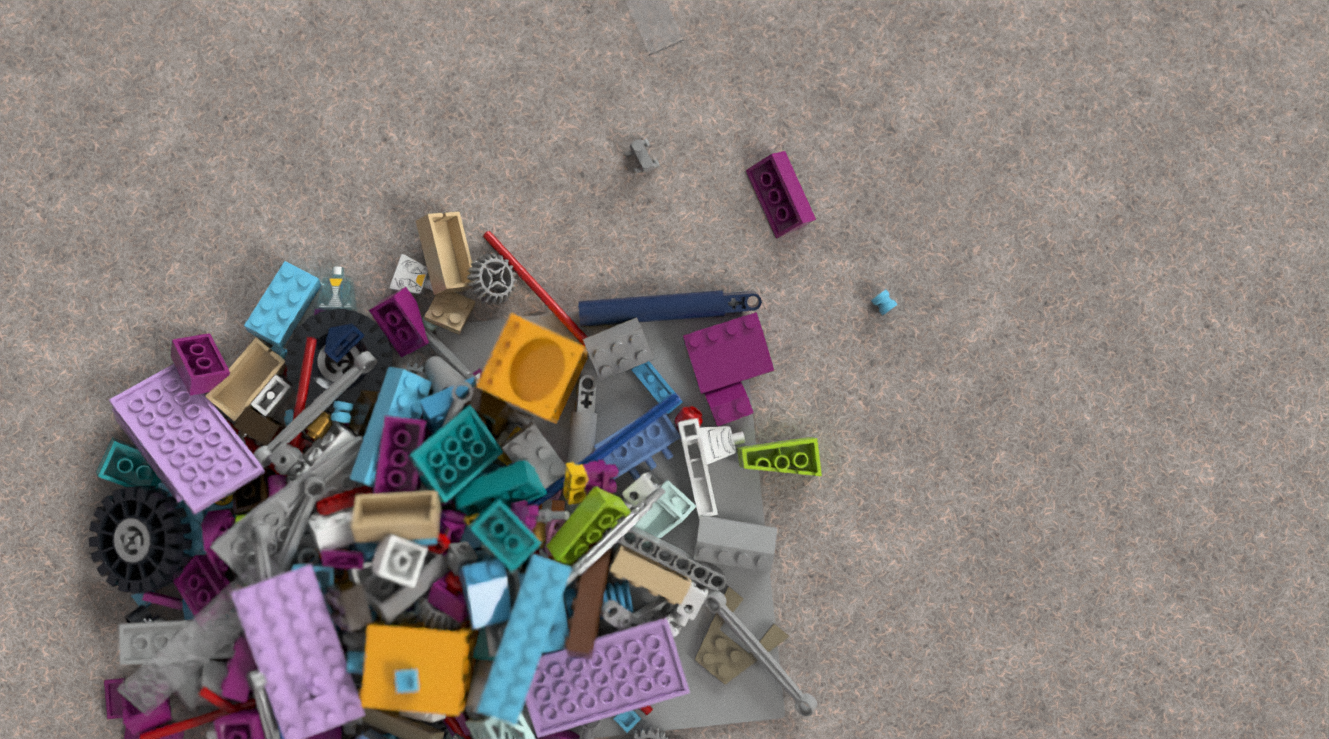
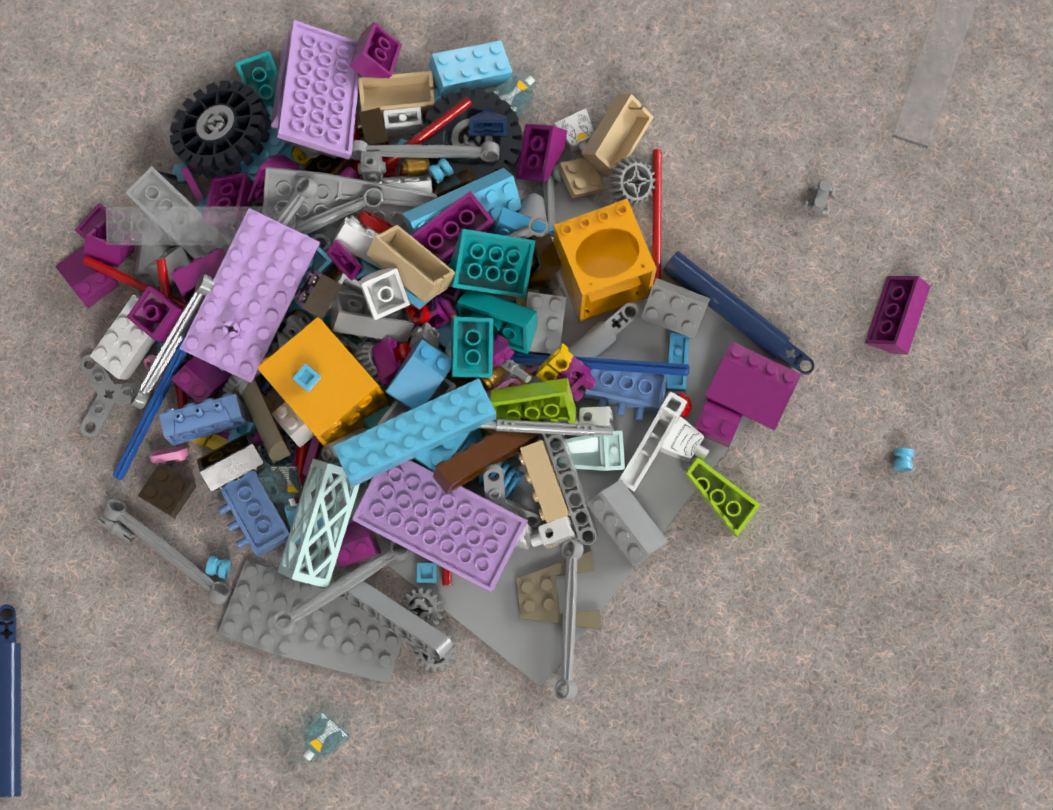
camera: 45 degrees right, 10 degrees down
(355, 662) = (280, 338): medium azure plate -> none

